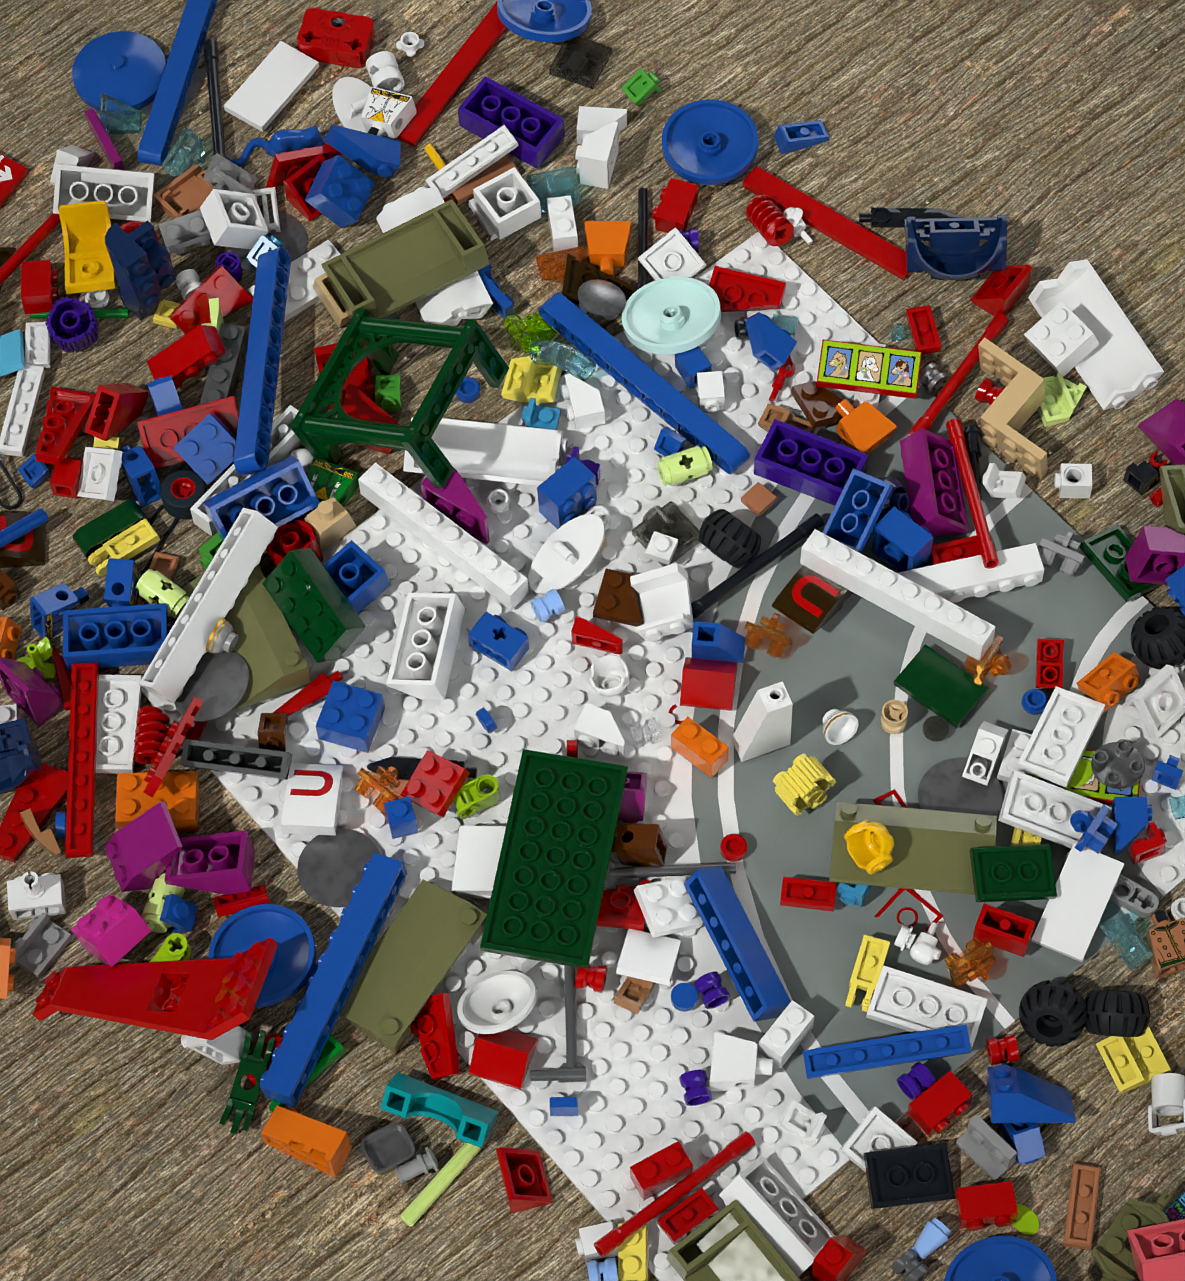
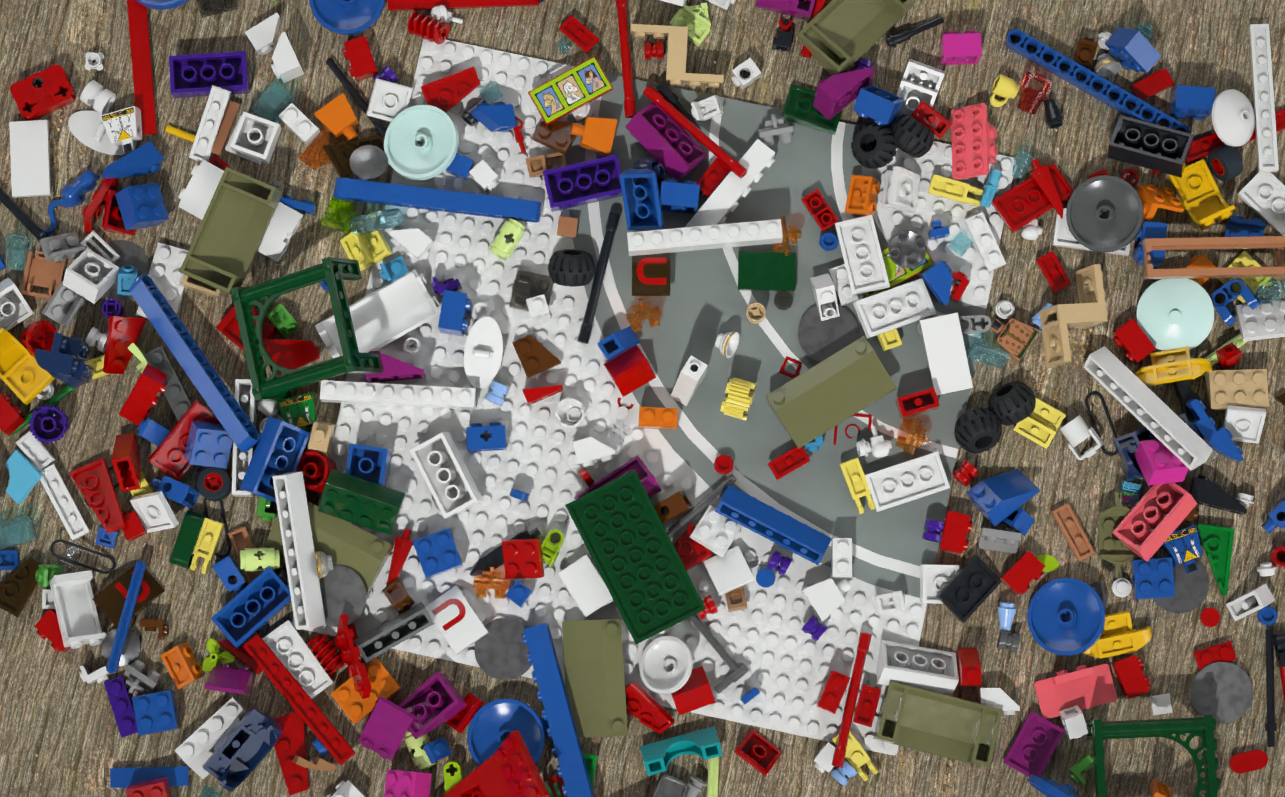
camera: 40 degrees left, 20 degrees up
(48, 608) = (201, 624): blue torso -> none
(663, 601) = (567, 341): white panel -> none
(669, 442) = (487, 230): blue tile -> none
(870, 846) = (811, 414): yellow hair -> none
(887, 1051) = (905, 526): blue plate -> none
(932, 378) = (610, 65): flat silver wheel -> none
(1013, 873) = (900, 366): dark green tile -> none
(1095, 830) = (922, 305): blue hips -> none

